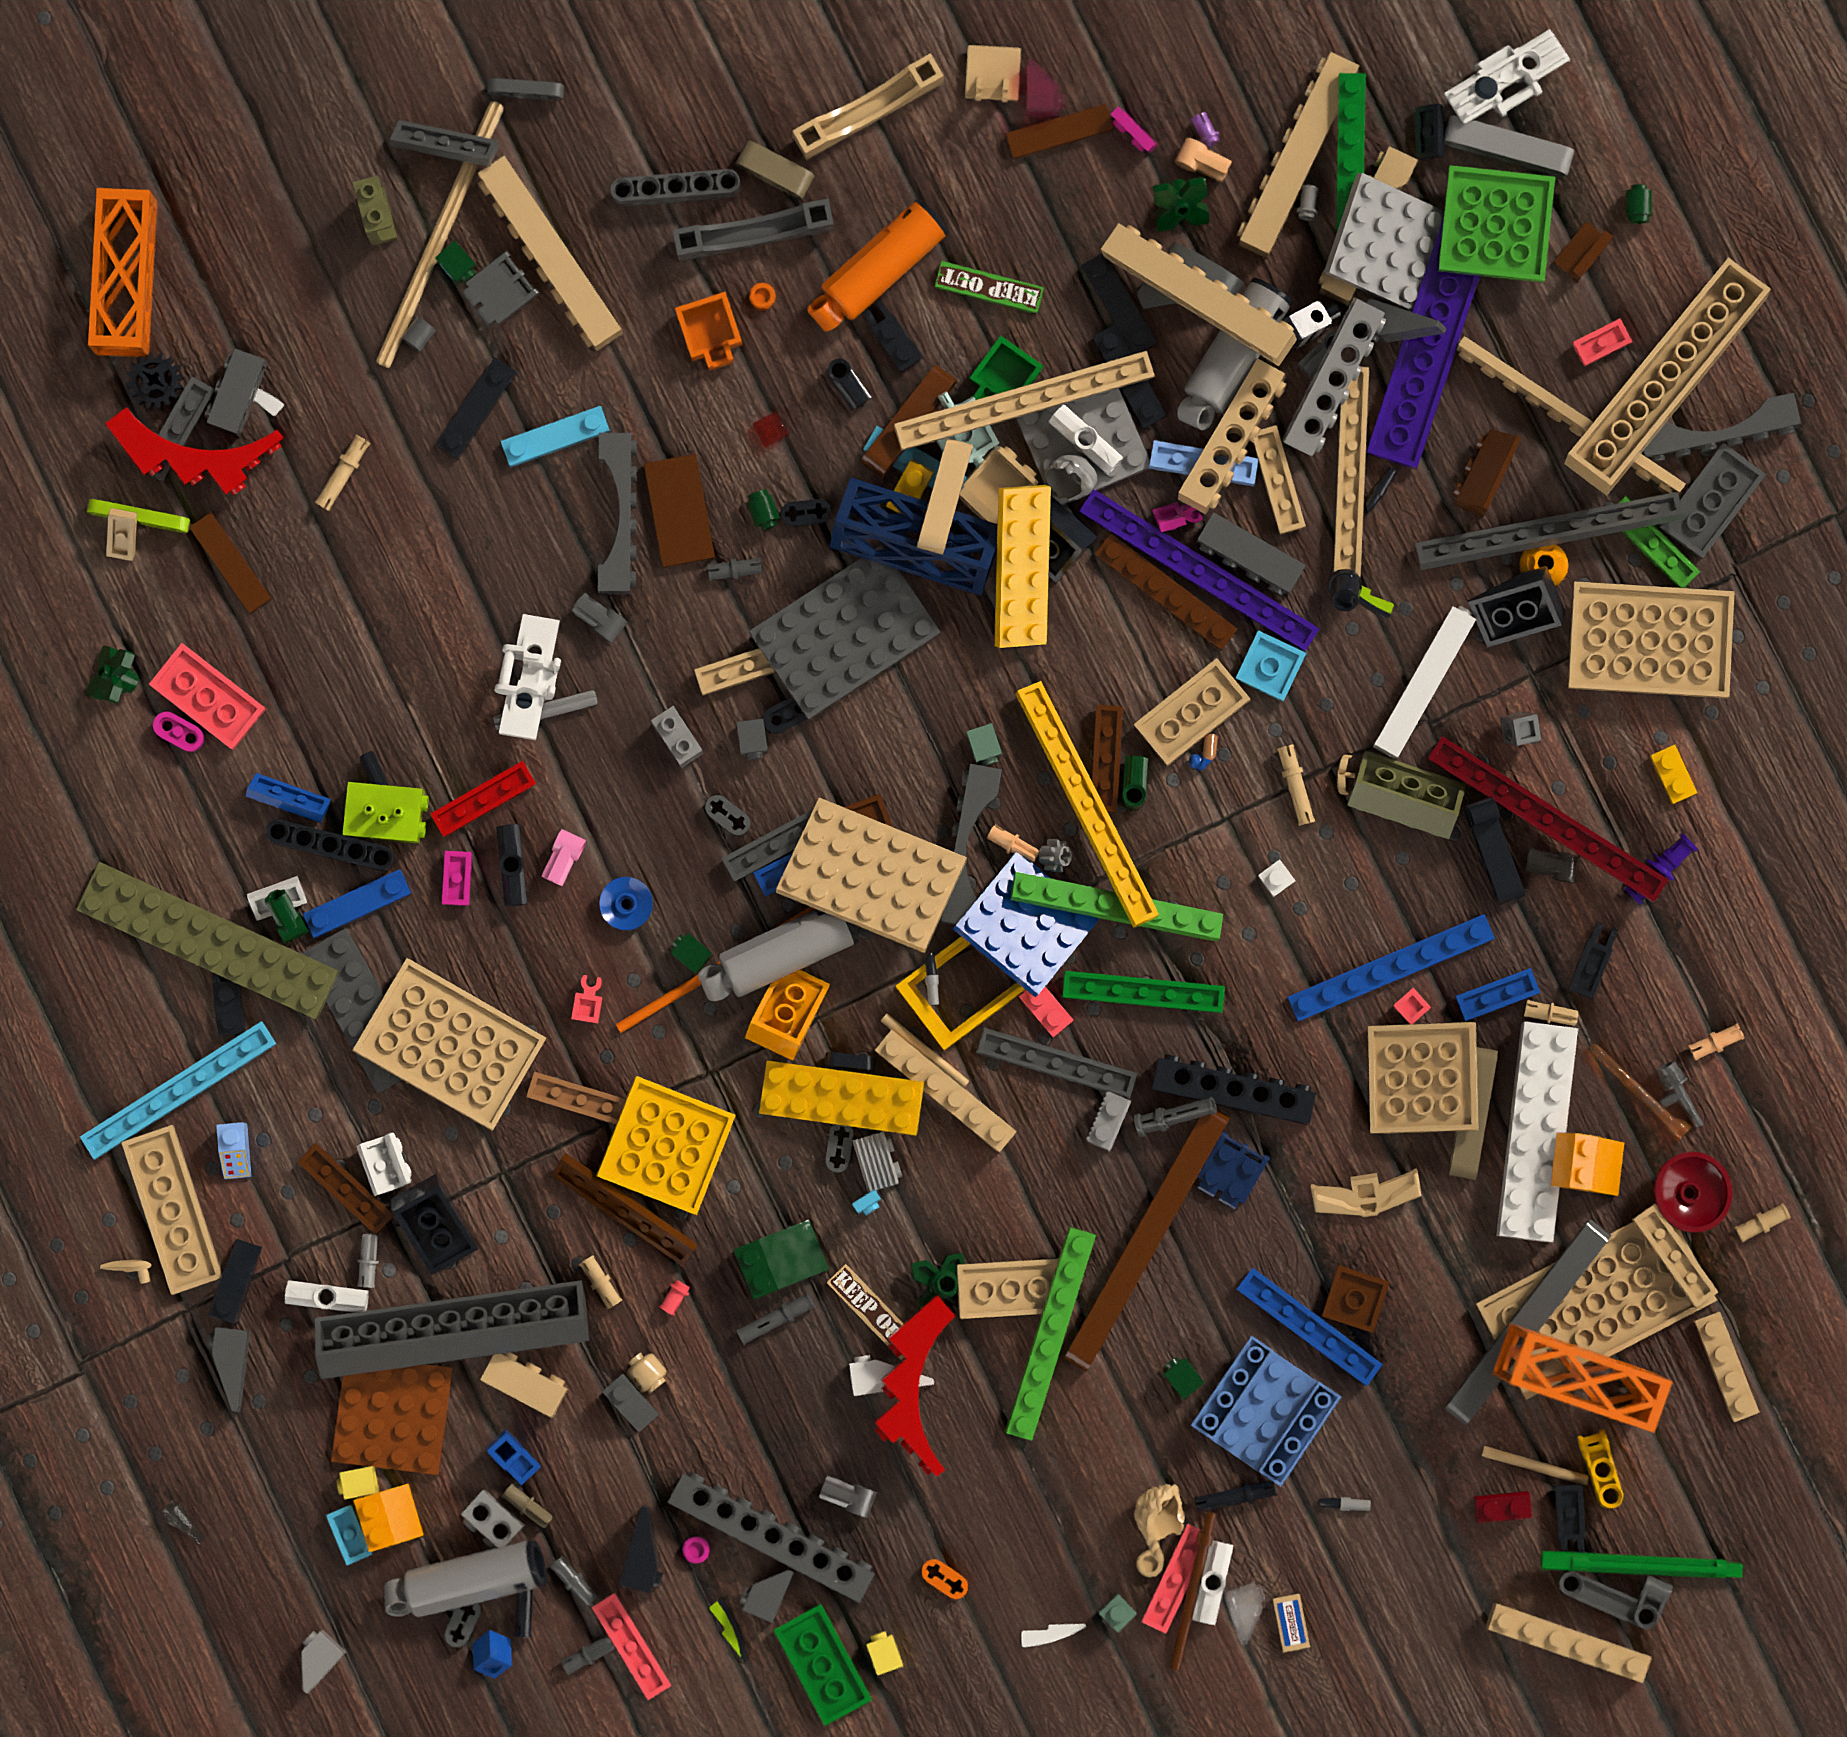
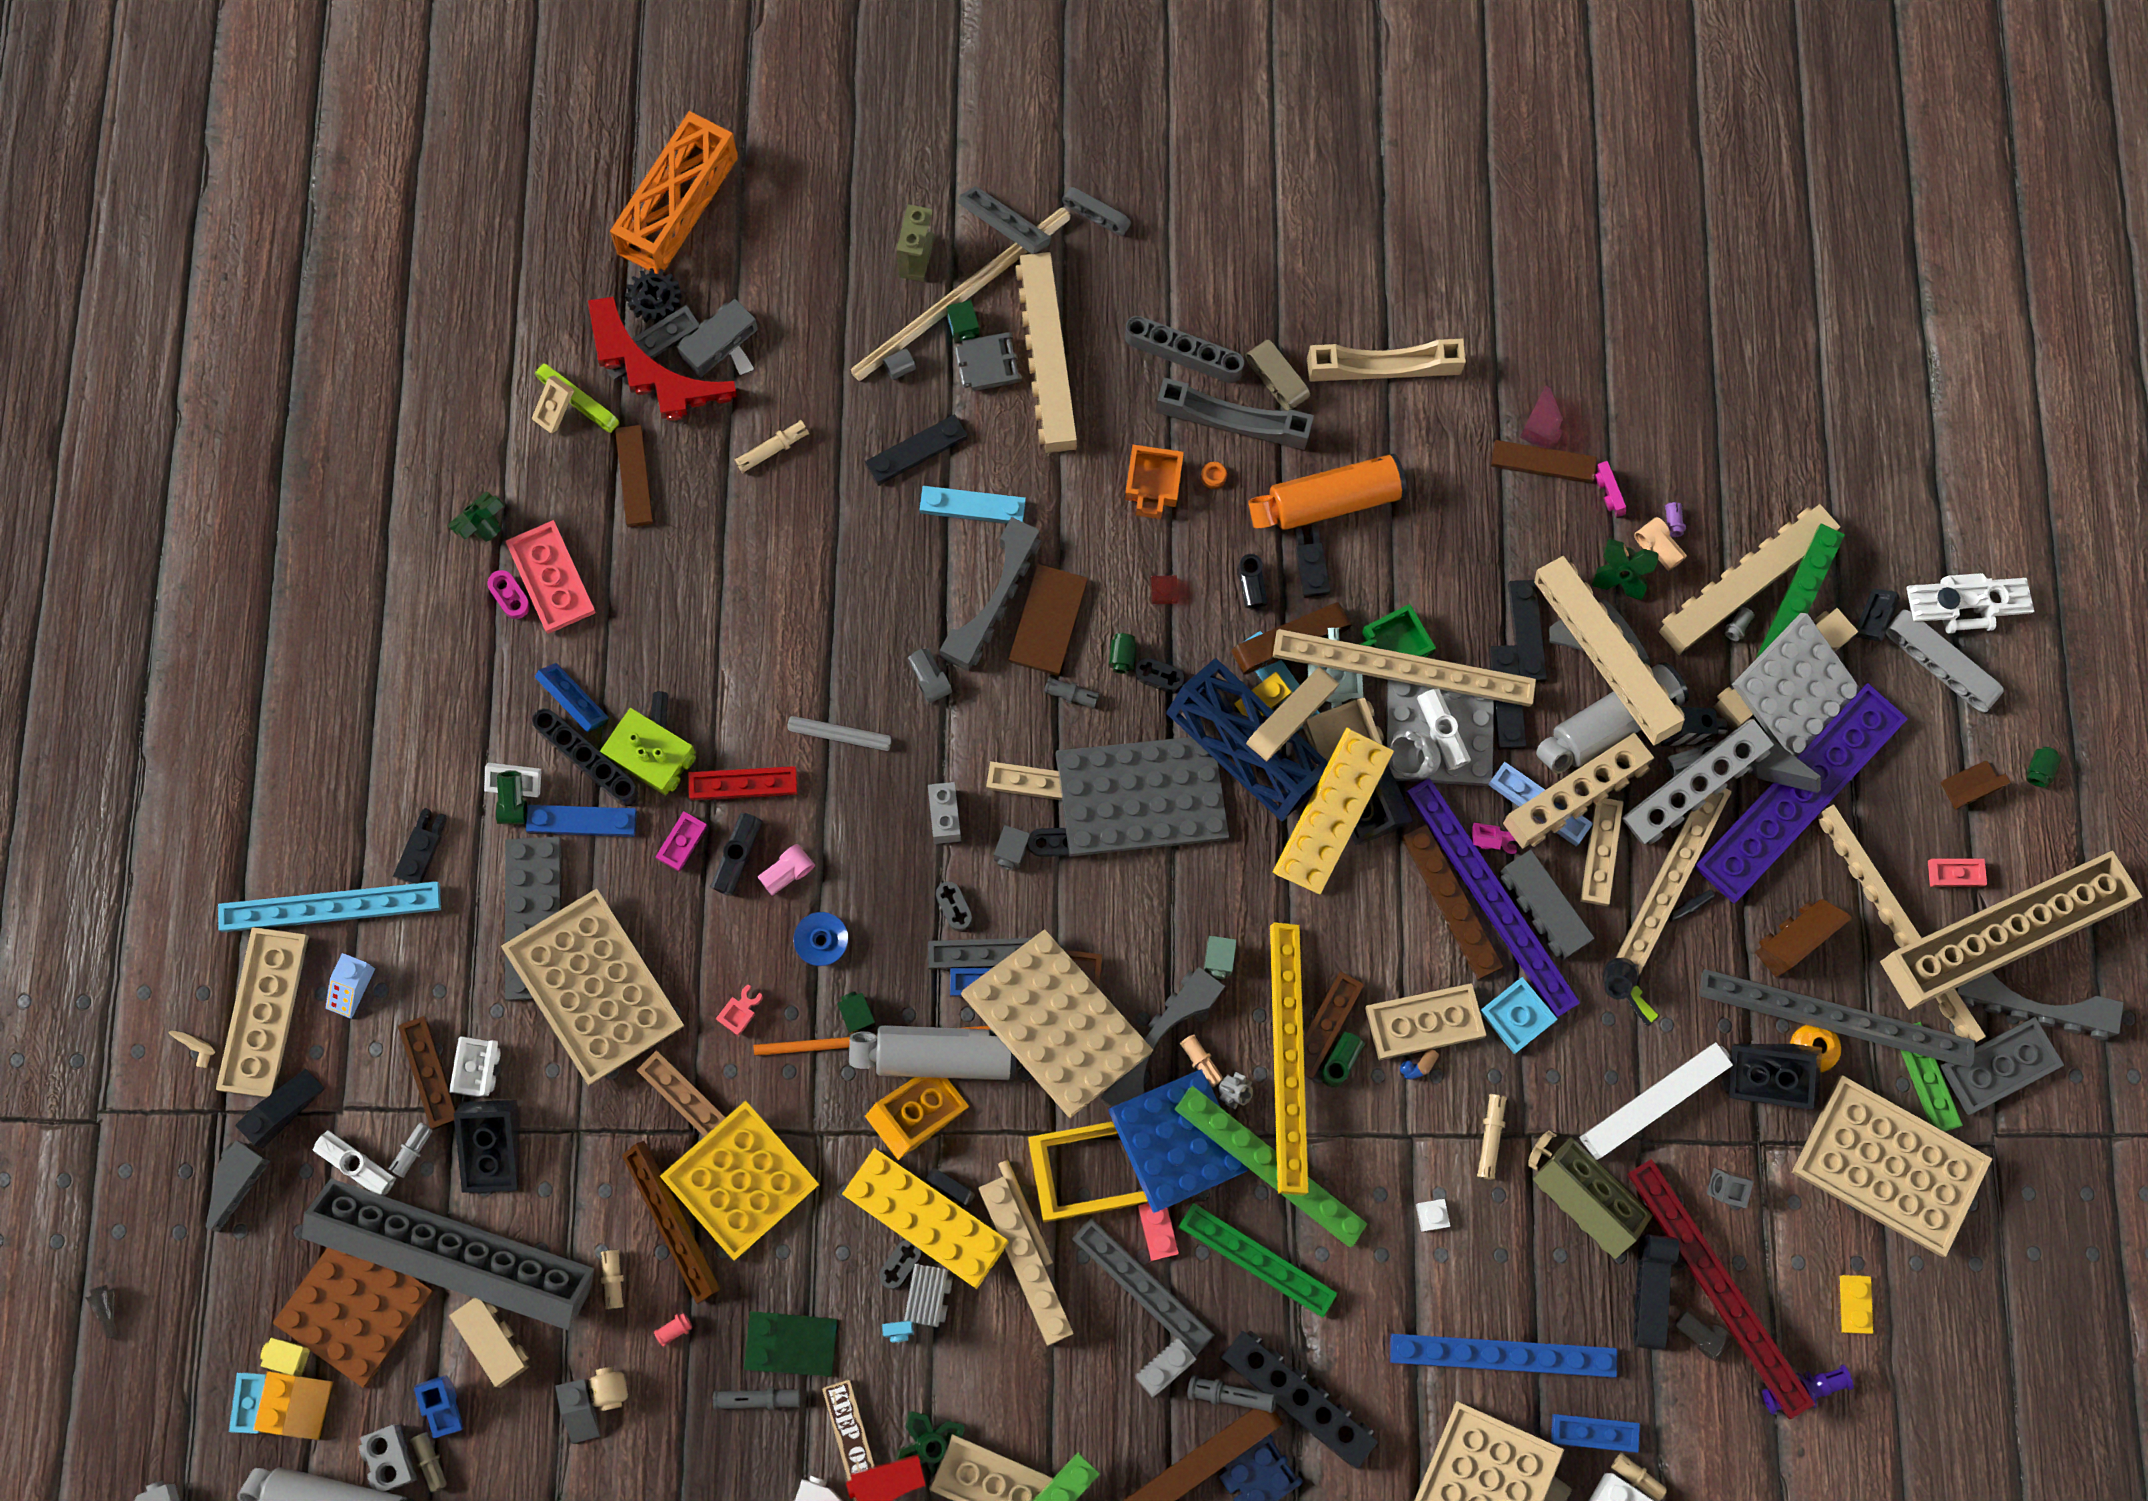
camera: 20 degrees right, 10 degrees down
(208, 940) = (432, 788): olive plate -> none
(538, 677) = (846, 701): white piece -> none
(931, 980) = (1064, 1148): light grey piece -> none
(989, 287) = (1418, 562): tile -> none
(993, 73) = (1508, 386): tan plate -> none
(1411, 1006) = (1507, 1403): coral plate -> none
(1496, 224) = (1906, 720): bright green plate -> none
(1592, 963) = (1701, 1448): black hinge -> none

